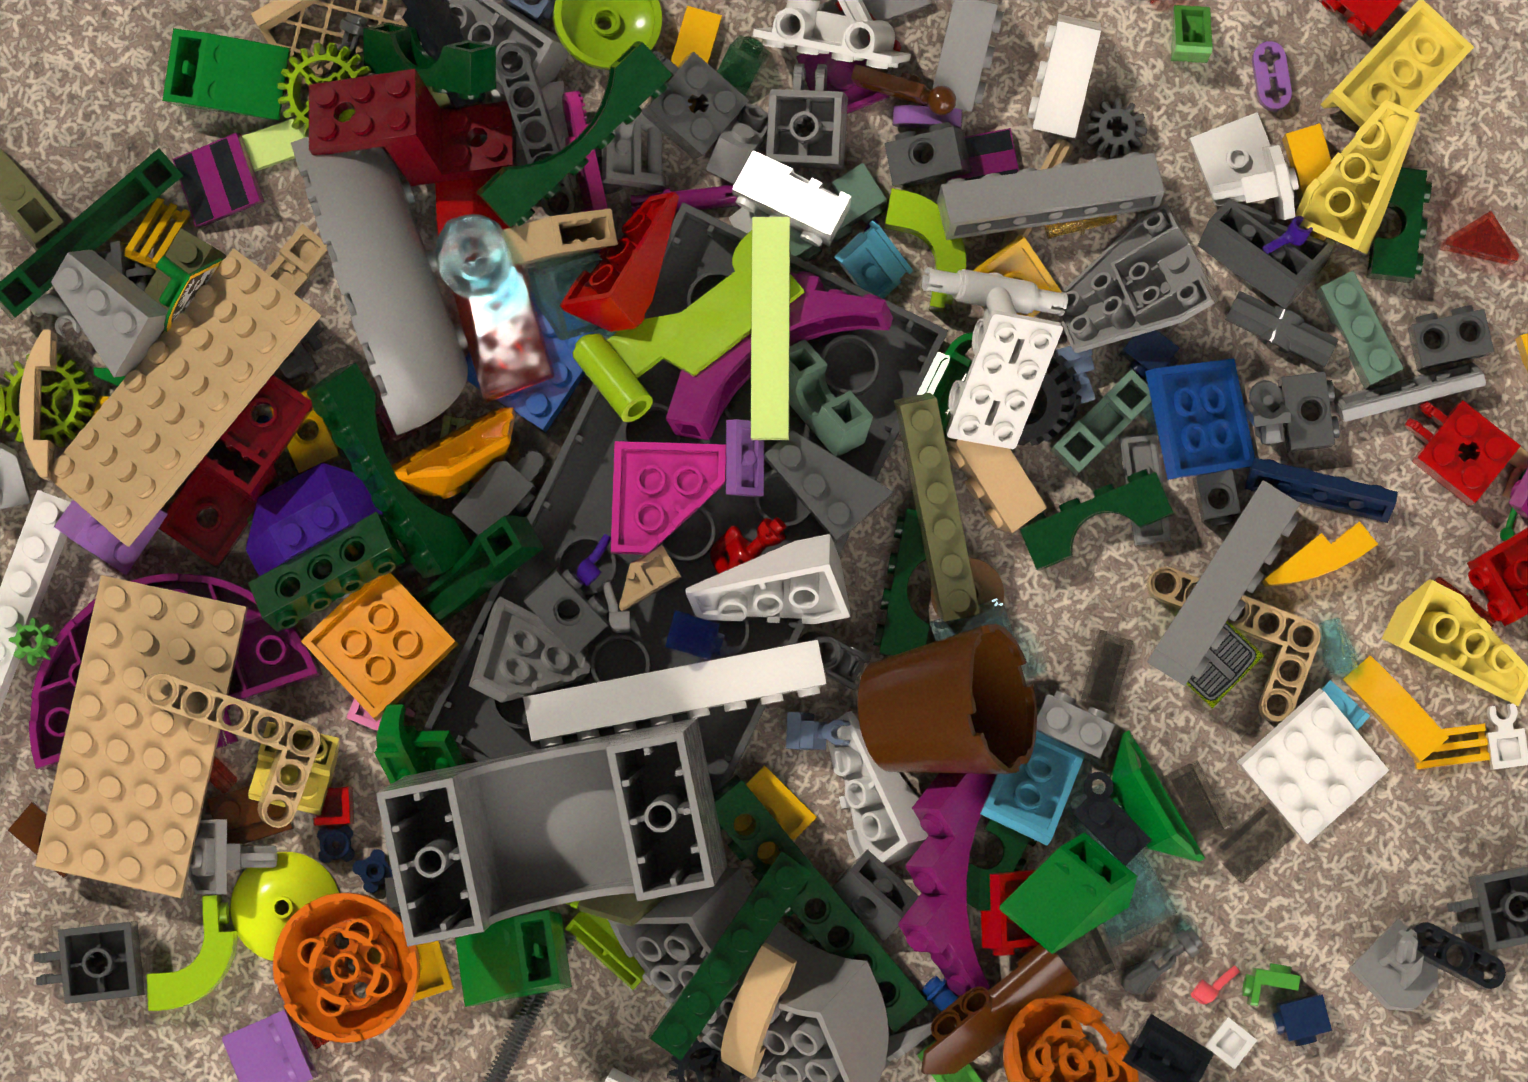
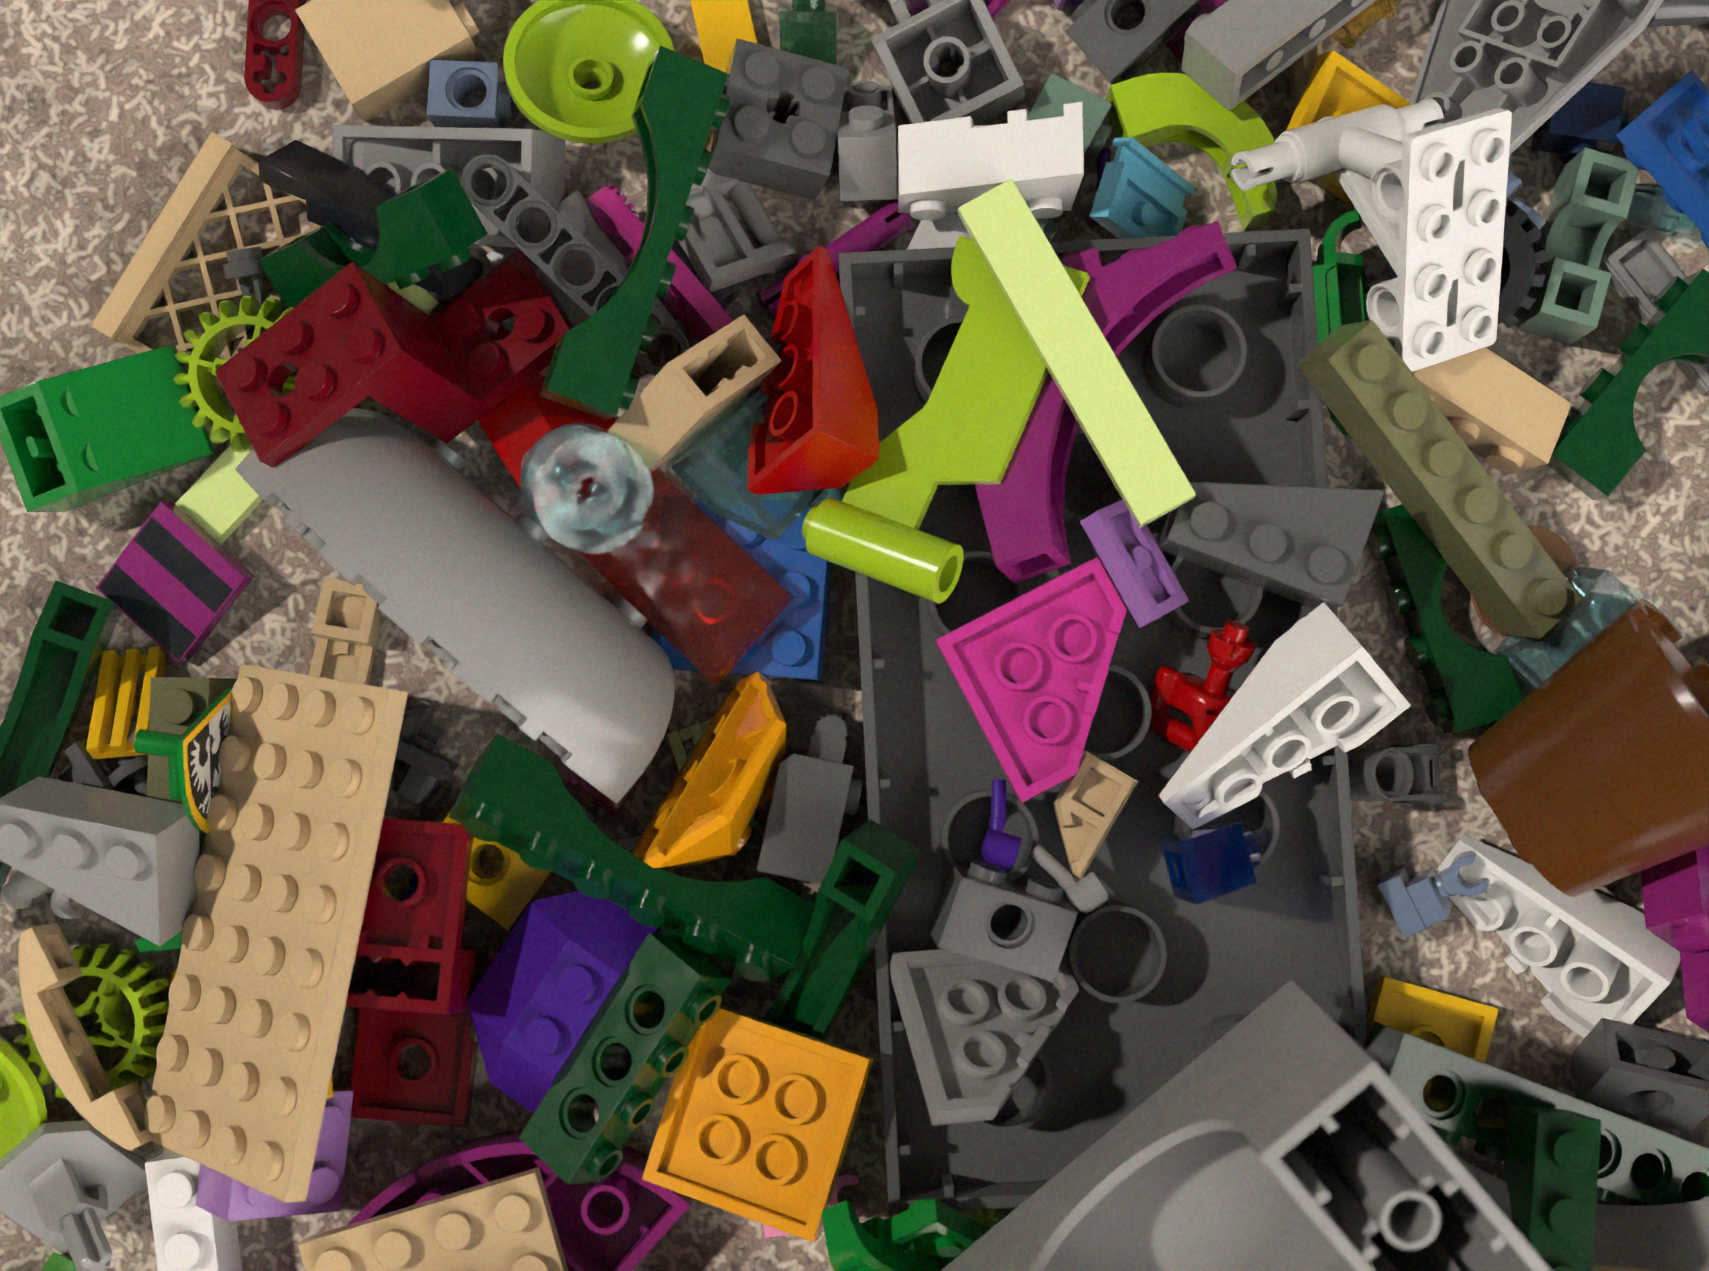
camera: 30 degrees left, 0 degrees up
(675, 691) = (1227, 954): white brick -> none
(837, 422) = (1235, 440): sand green arch -> none

